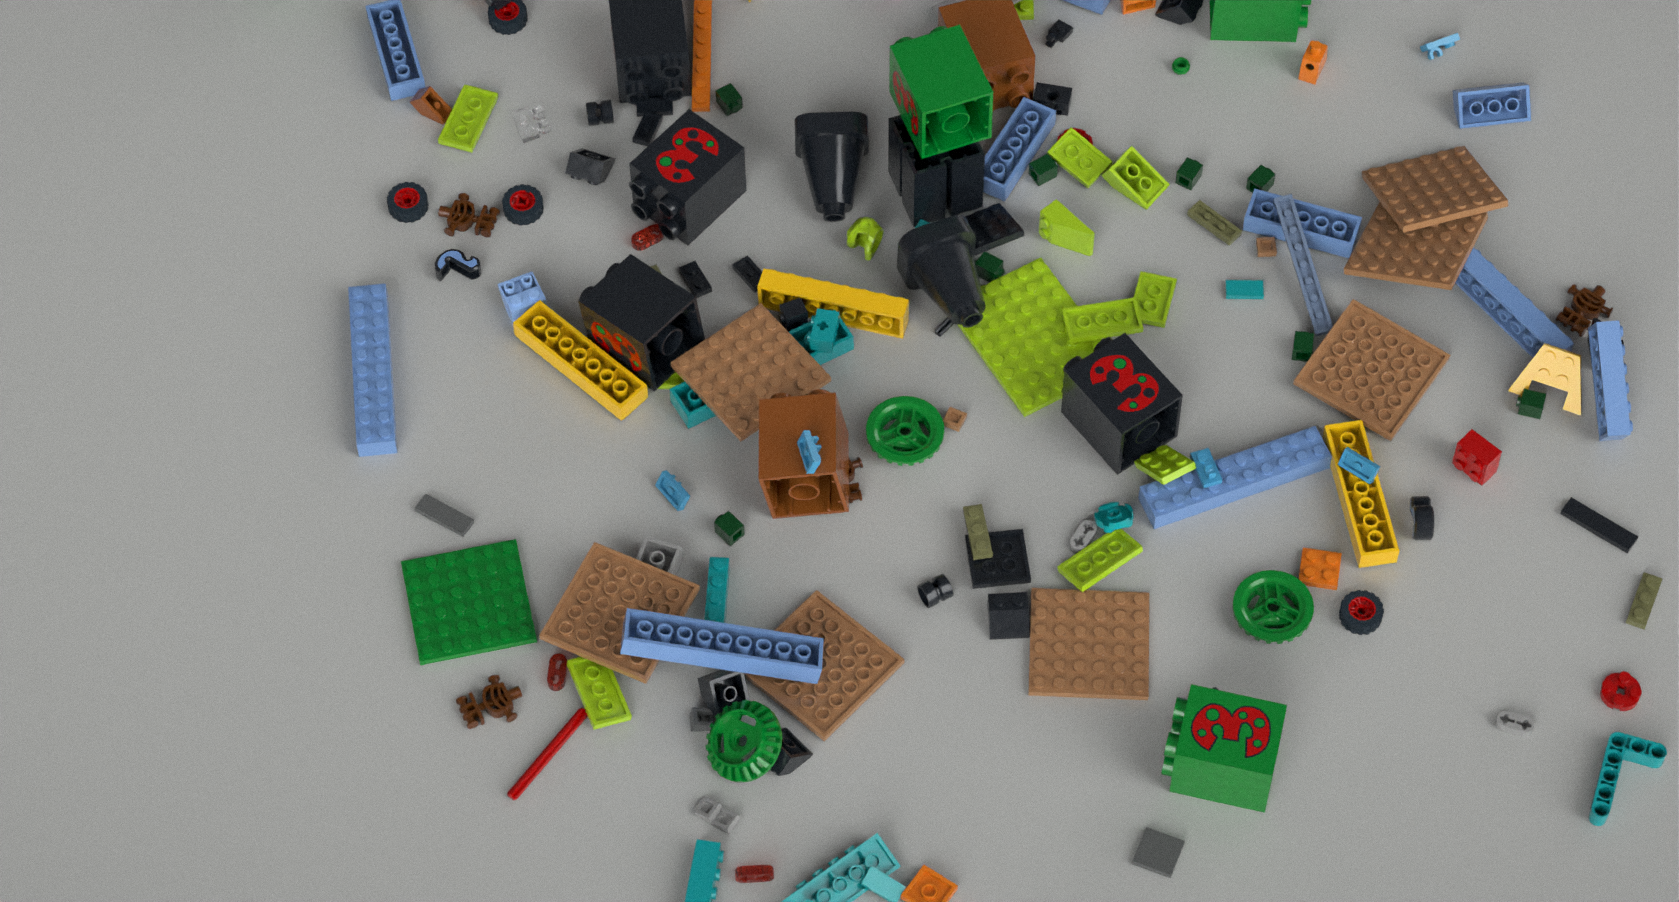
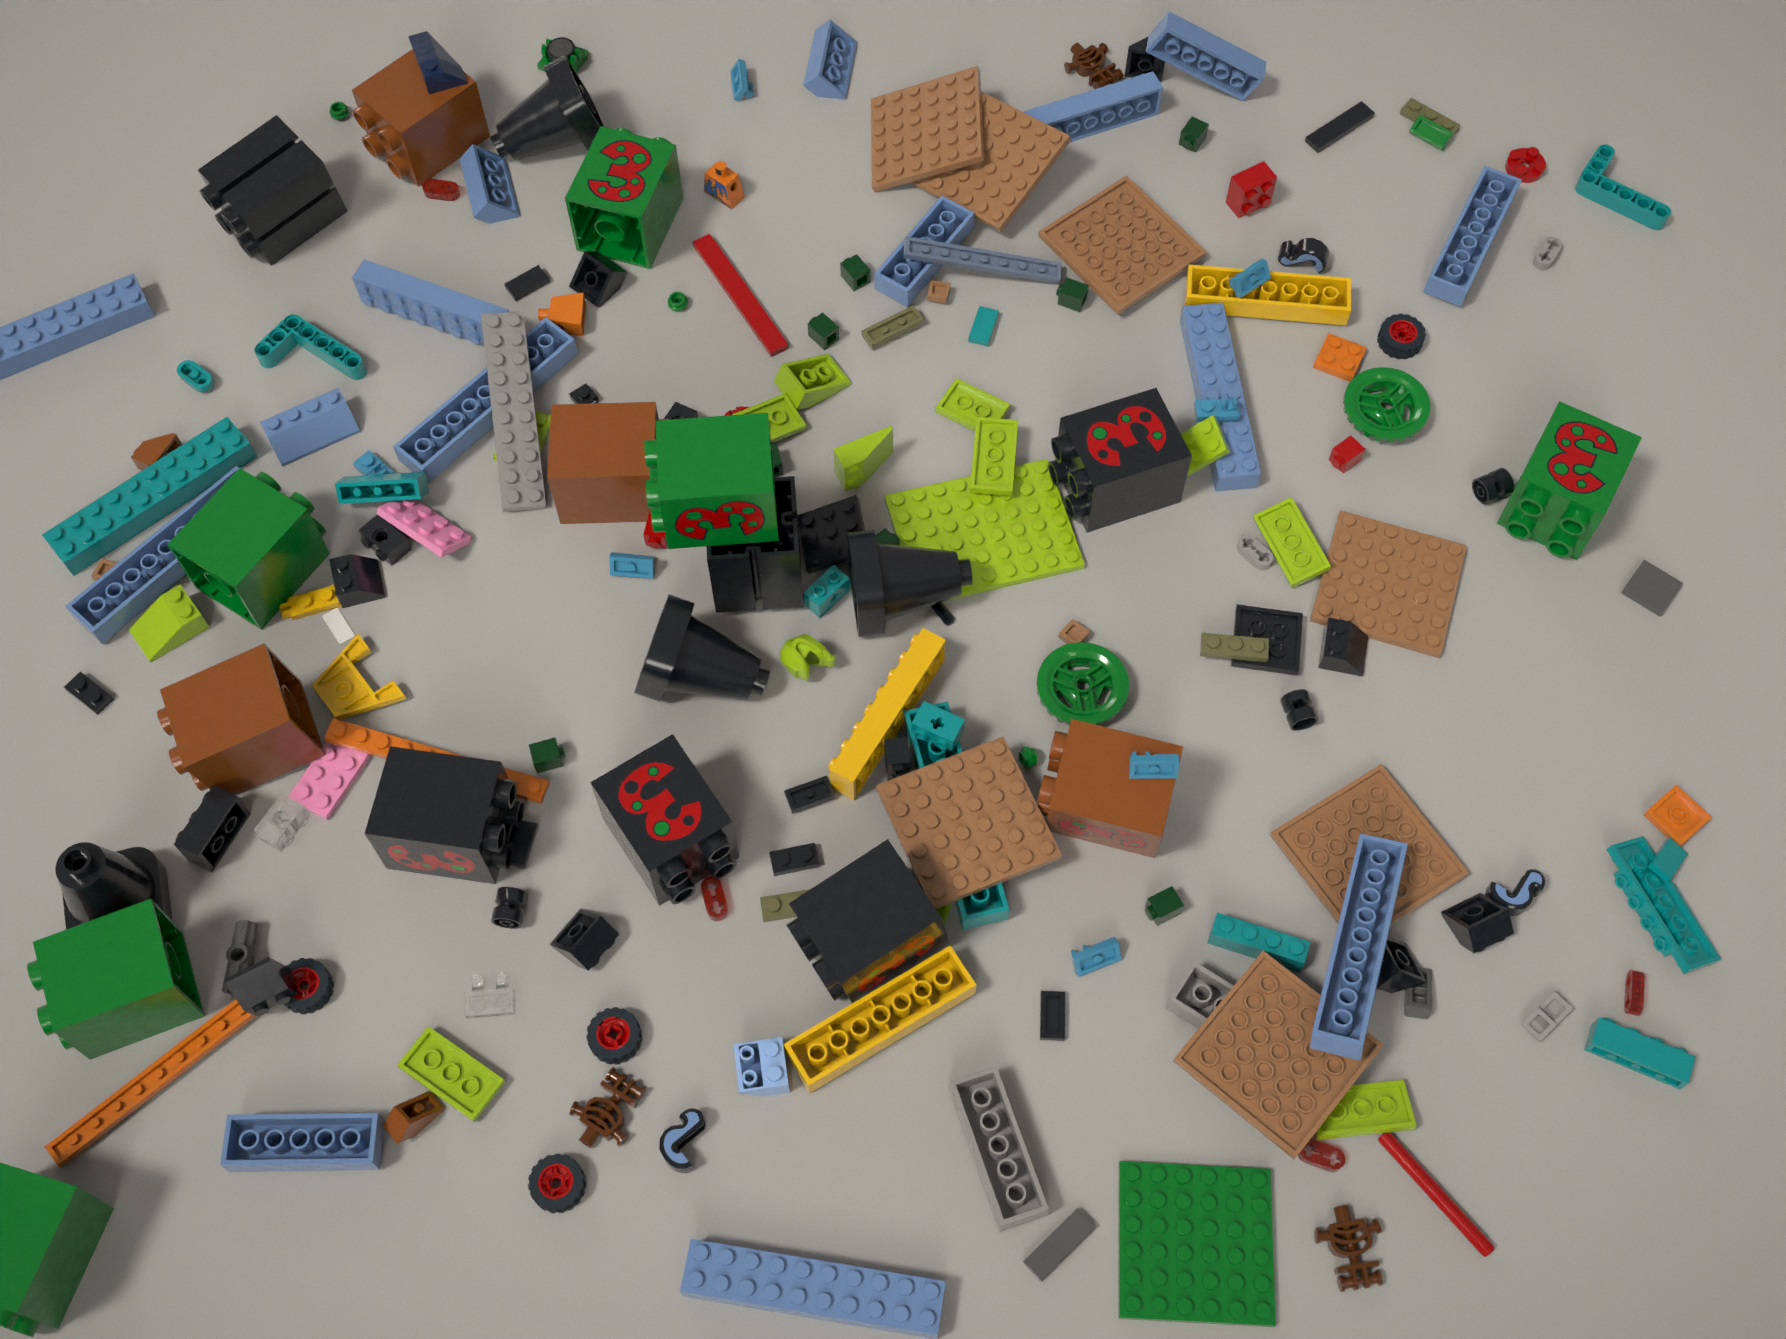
camera: 75 degrees left, 5 degrees up
(502, 455) = (998, 1149): none -> light grey brick
(618, 475) = (1052, 1015): none -> black tile
(647, 128) = (552, 859): black plate -> none
(764, 736) = (1444, 966): green gear -> none
(817, 780) = (1528, 887): none -> black animal
(1114, 516) = (1246, 525): teal plate -> none
(1206, 107) = (740, 295): none -> red tile
(1209, 587) = (1346, 454): none -> red brick
(1502, 650) = (1472, 236): none -> medium blue brick
(1557, 369) = (1171, 98): yellow wing -> none
(1623, 602) = (1431, 132): none -> green tile

